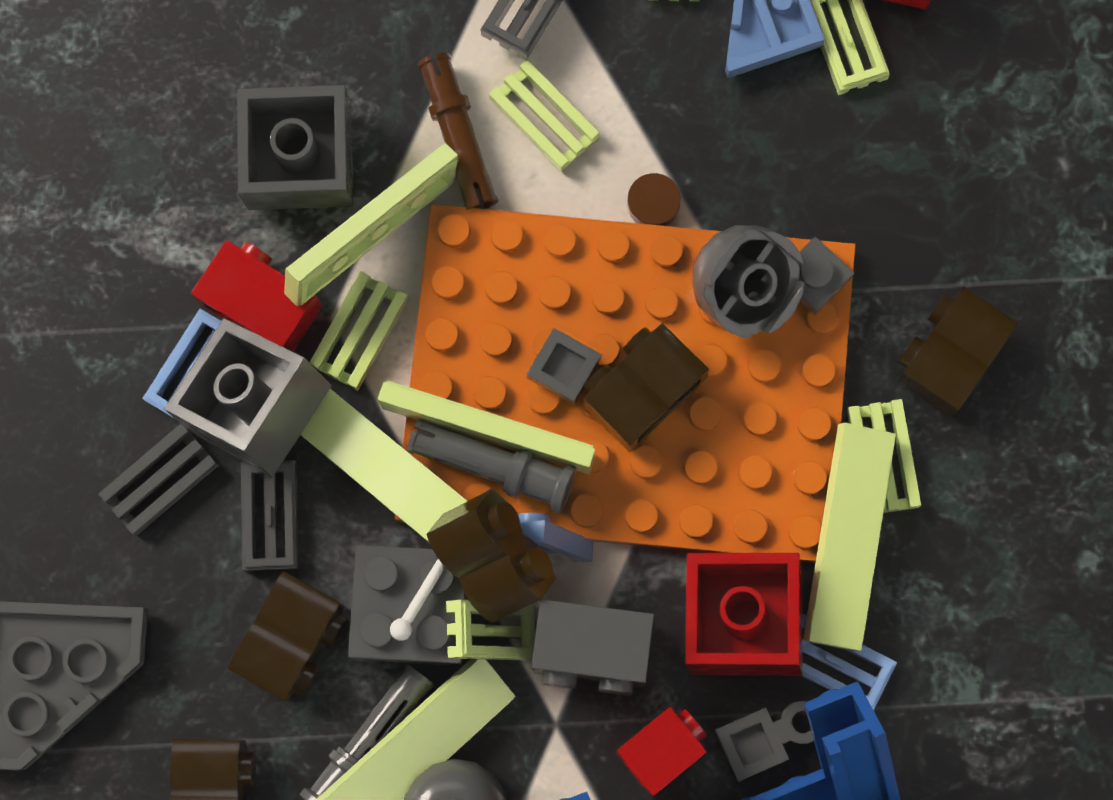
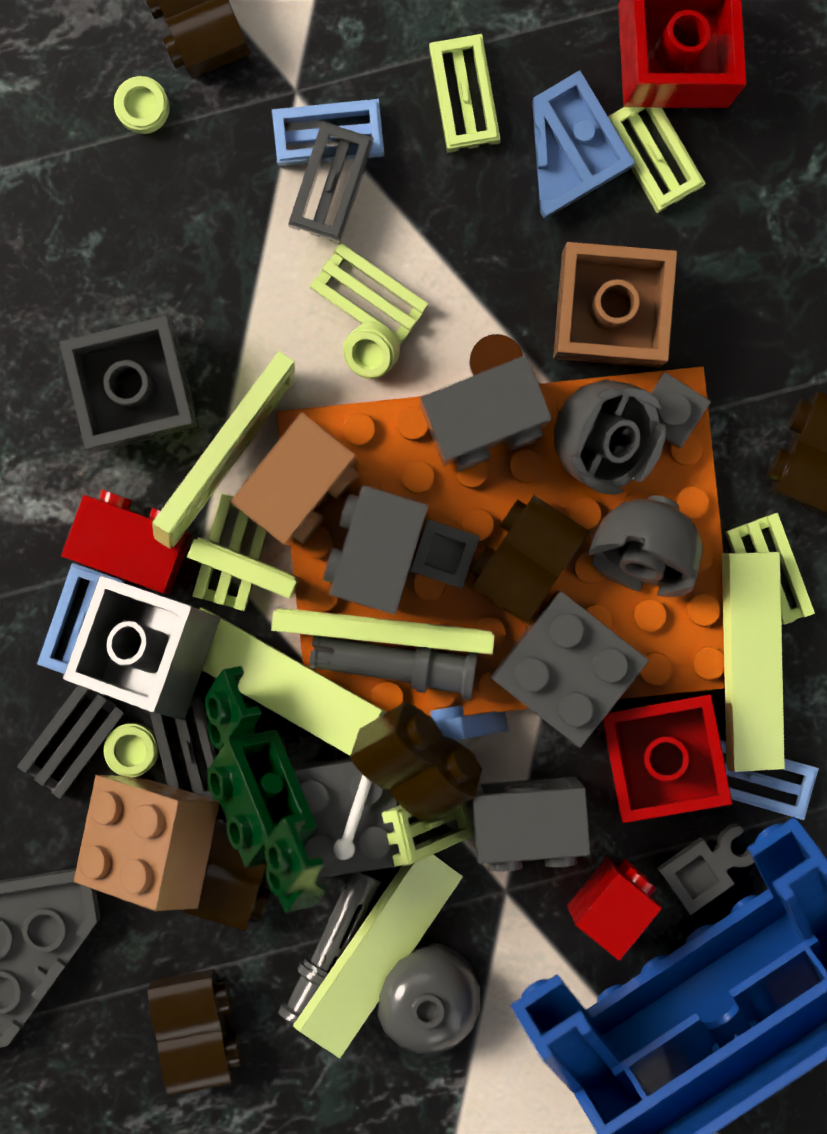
camera: 15 degrees left, 10 degrees up
(207, 587) = (146, 842): none -> medium nougat brick
(214, 502) = (131, 749): none -> yellowish green tile
(330, 559) = (260, 796): none -> dark green bracket
(365, 340) = (243, 567): none -> yellowish green tile
(434, 261) = (297, 482): none -> medium nougat brick
(450, 110) = (286, 330): reddish brown pin -> none
(497, 341) = (376, 549): none -> dark grey brick
(534, 164) = (371, 350): none -> yellowish green tile
(630, 234) = (485, 413): none -> dark grey brick
(662, 499) = (568, 668): none -> dark grey brick
(764, 397) = (649, 545): none -> dark grey cylinder
(778, 165) = (615, 304): none -> medium nougat brick

